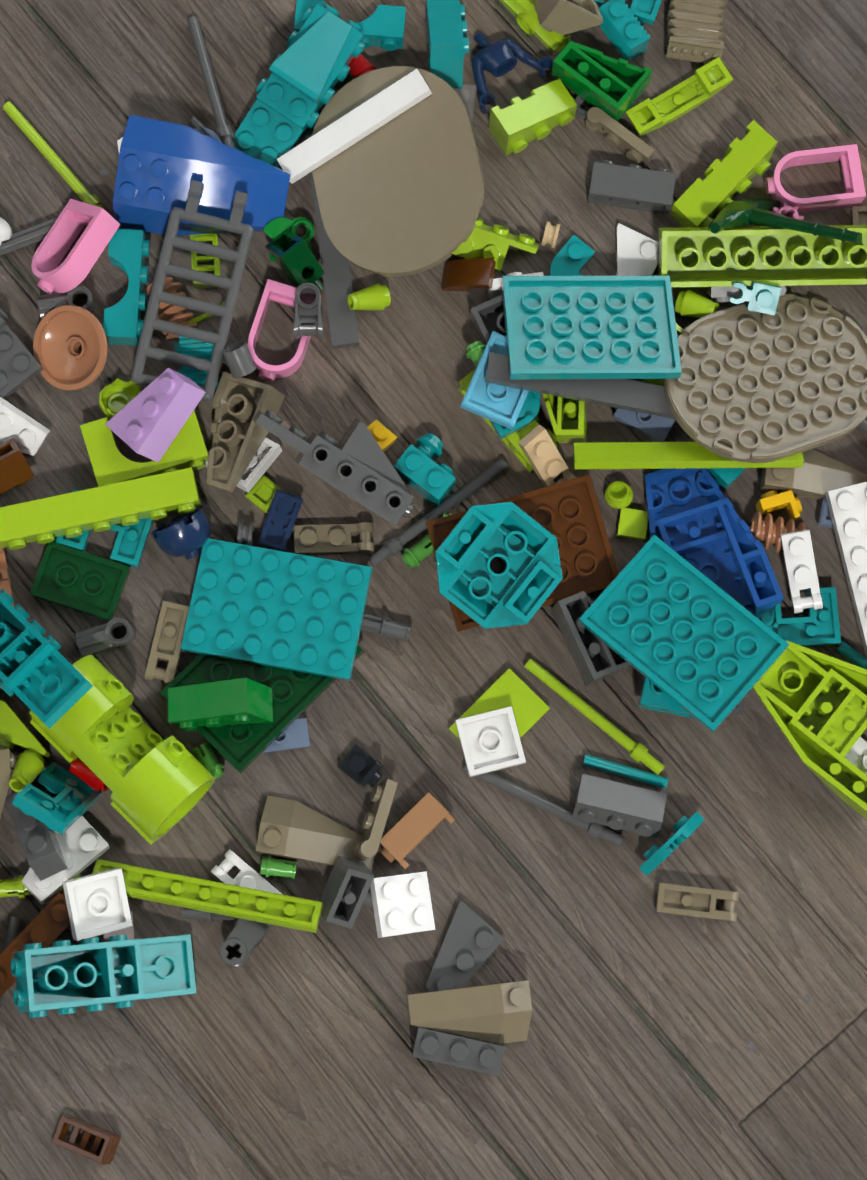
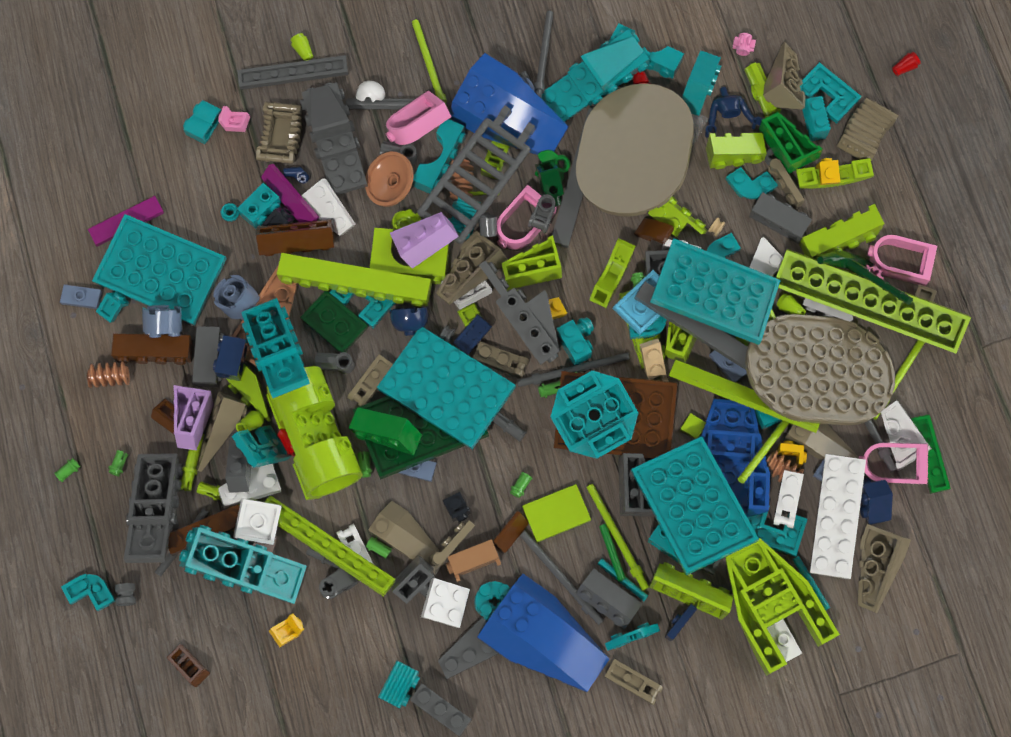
camera: 30 degrees right, 5 degrees down
(202, 1033) = (287, 630): none -> yellow bracket
(324, 390) = (533, 266): none -> lime wedge
(354, 126) = (620, 112): white tile -> none
(370, 298) = (586, 221): lime cone -> none
(386, 1042) = (399, 684): none -> teal brick
(434, 700) = (520, 485): none -> bright green pin
(437, 357) = (613, 273): none -> lime arch
(448, 771) = (510, 532): none -> reddish brown slope
(461, 889) = (486, 593): none -> teal plate
(484, 1012) = (467, 692): dark tan wedge -> none
(490, 741) = (544, 524): white plate -> none
(552, 893) = (543, 636): none -> blue wedge
(575, 163) = (750, 189): none -> teal plate
(595, 739) = (612, 552): none -> green bar
(618, 495) = (691, 404): lime plate -> none
(670, 97) = (828, 171): none -> yellow bracket
(725, 748) = (692, 591): none -> lime slope
(725, 796) = (679, 622): none -> dark blue plate
(742, 522) = (763, 451): none -> lime bar
(759, 298) = (833, 317): plate -> none

